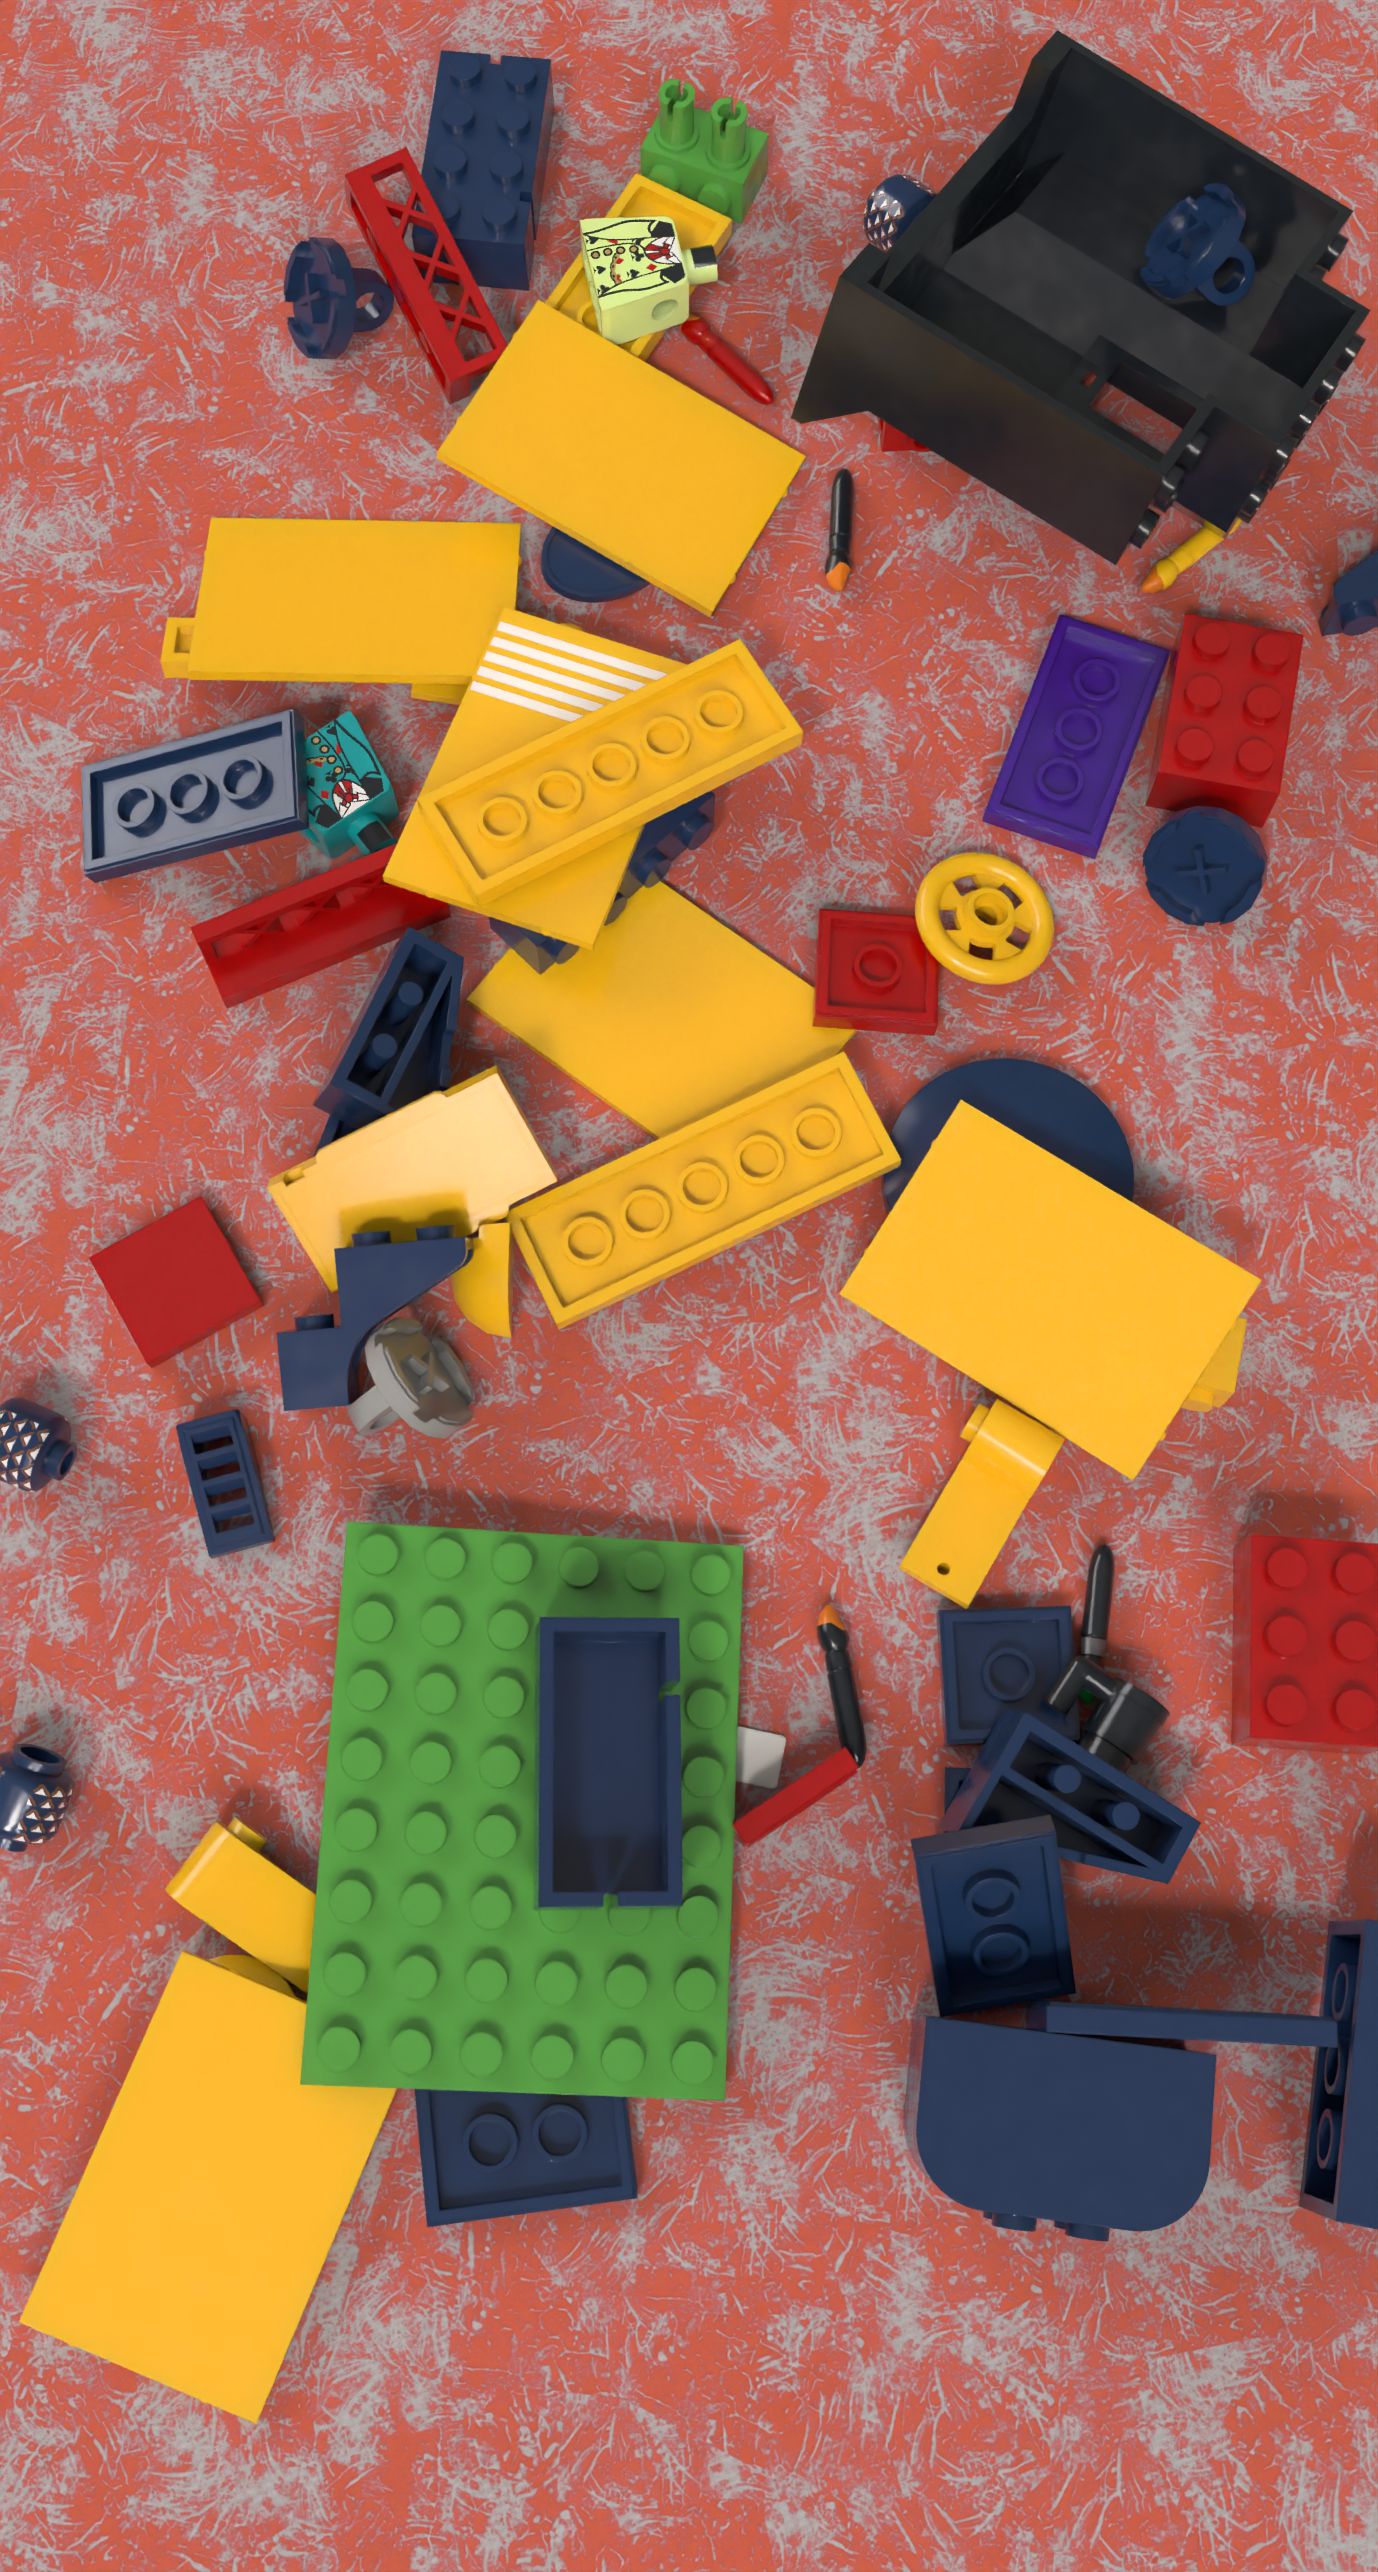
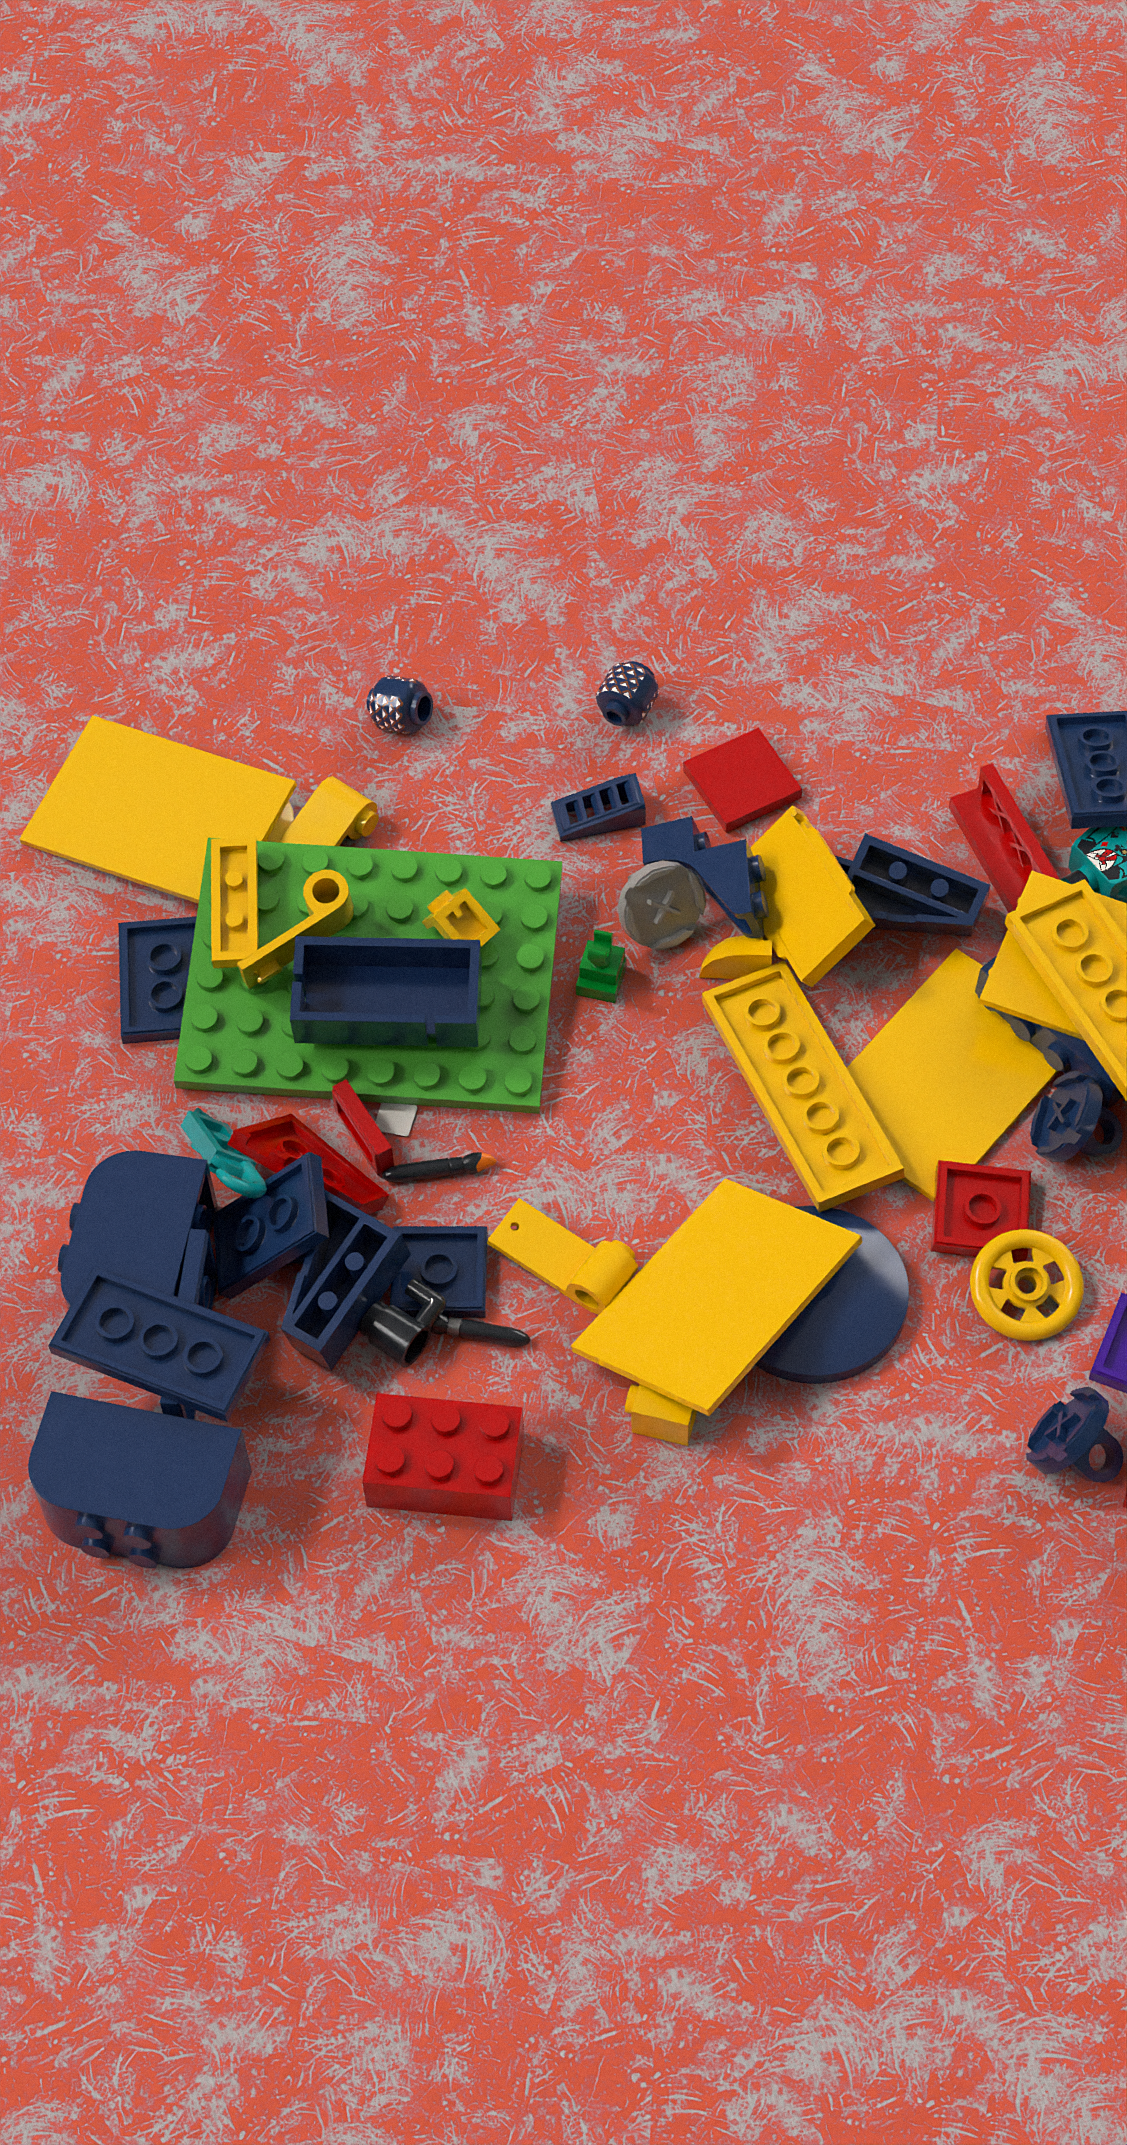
camera: 95 degrees right, 15 degrees down
(439, 2023) = (234, 900): none -> yellow plate
(462, 1864) = (329, 912): none -> yellow door
(472, 1663) = (460, 917): none -> yellow bracket
(514, 1469) = (601, 968): none -> green piece
(753, 854) = (1068, 1118): none -> dark blue tile
(863, 1873) = (286, 1139): none -> red wing
(870, 2001) = (210, 1140): none -> teal plate
(1249, 2059) = (160, 1343): none -> dark blue tile

